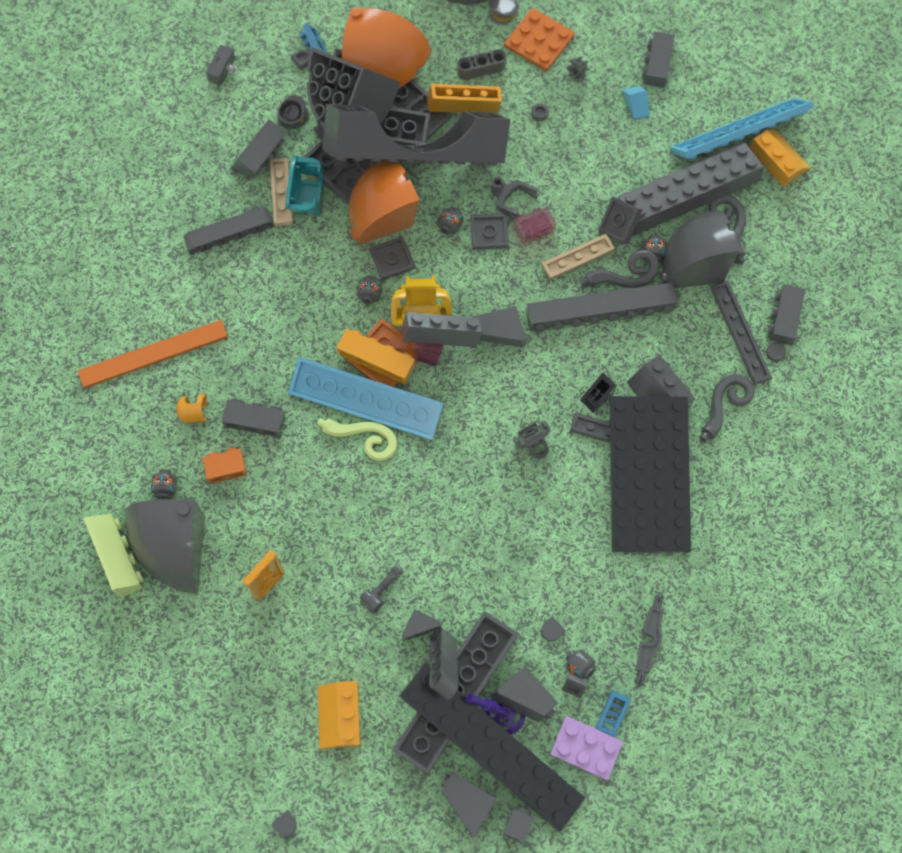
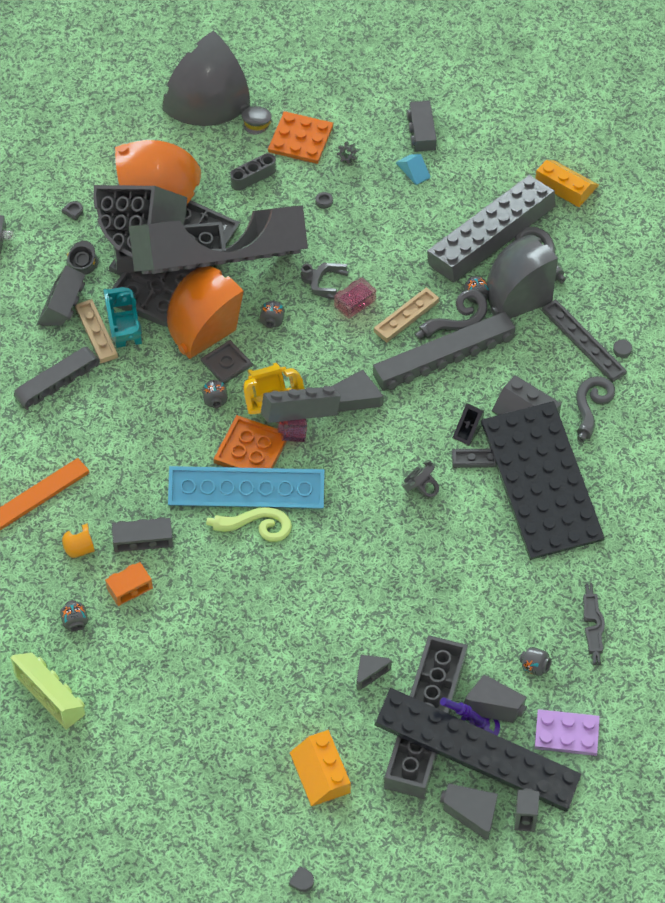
camera: 15 degrees left, 15 degrees down
(168, 540) = (95, 658): dark grey brick -> none
(264, 576) = (207, 658): light orange tile -> none
(313, 38) = (78, 189): dark azure plate -> none
(371, 598) = (315, 661): dark grey brick -> none
(376, 356) = (244, 447): light orange brick -> none
(443, 663) = (407, 684): dark grey beam -> none
(463, 98) = (241, 204): light orange brick -> none
(489, 231) = (312, 315): dark grey tile -> none
(552, 629) = (497, 640): dark grey tile -> none
(574, 685) = (536, 680): dark grey tile -> none
(613, 694) = (582, 679): dark azure slope -> none
(620, 220) = (436, 270): dark grey tile -> none
(738, 129) = (520, 166): medium azure plate -> none
(786, 314) = (620, 313): dark grey brick -> none

